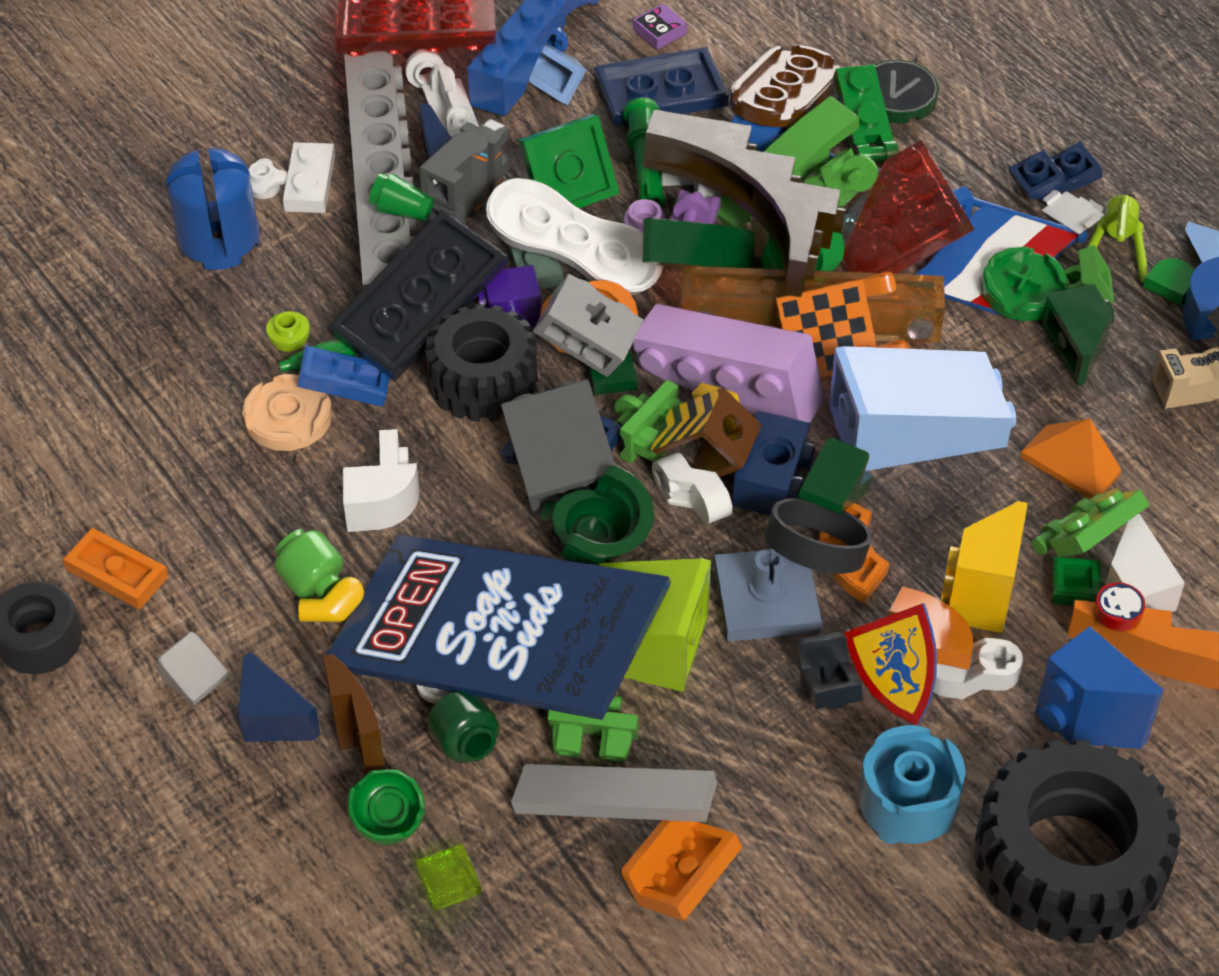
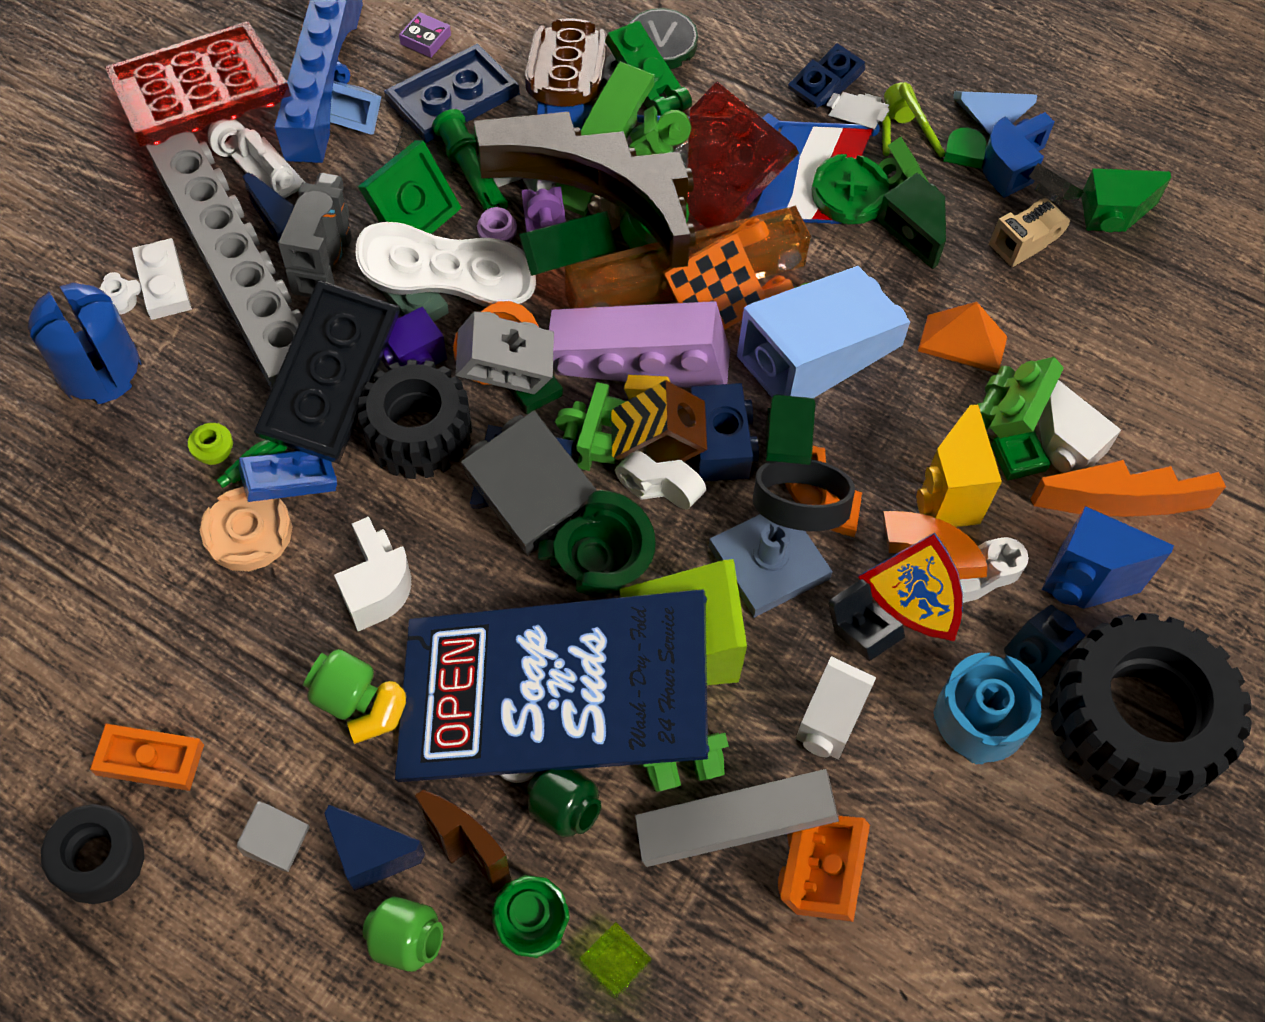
camera: 25 degrees left, 10 degrees up
(268, 782) = (403, 934): none -> bright green head
(400, 198) = (269, 279): green cone -> none
(755, 733) = (834, 709): none -> white slope
(997, 745) = (1044, 640): none -> black bracket
(1119, 606) = (1085, 472): tile -> none

